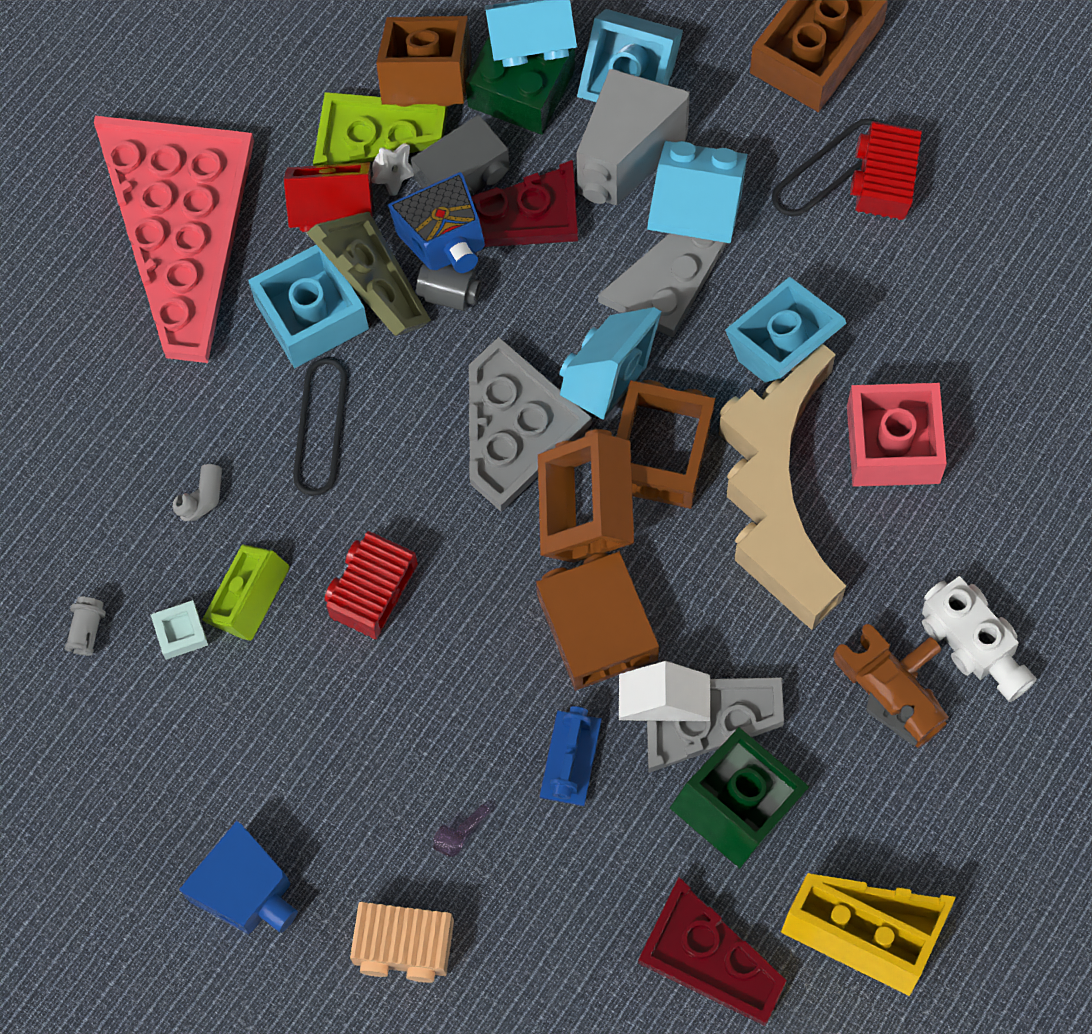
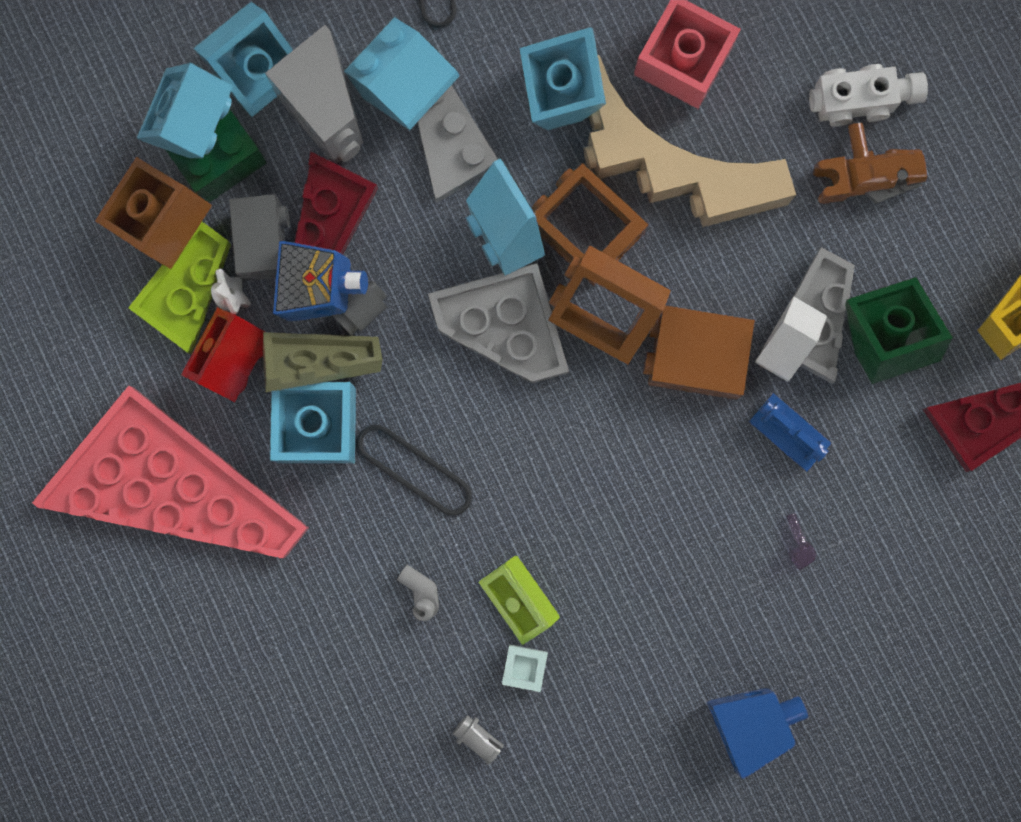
camera: 65 degrees left, 15 degrees up
(370, 584) = (574, 503): red brick -> none
(402, 941) = (864, 631): light nougat brick -> none

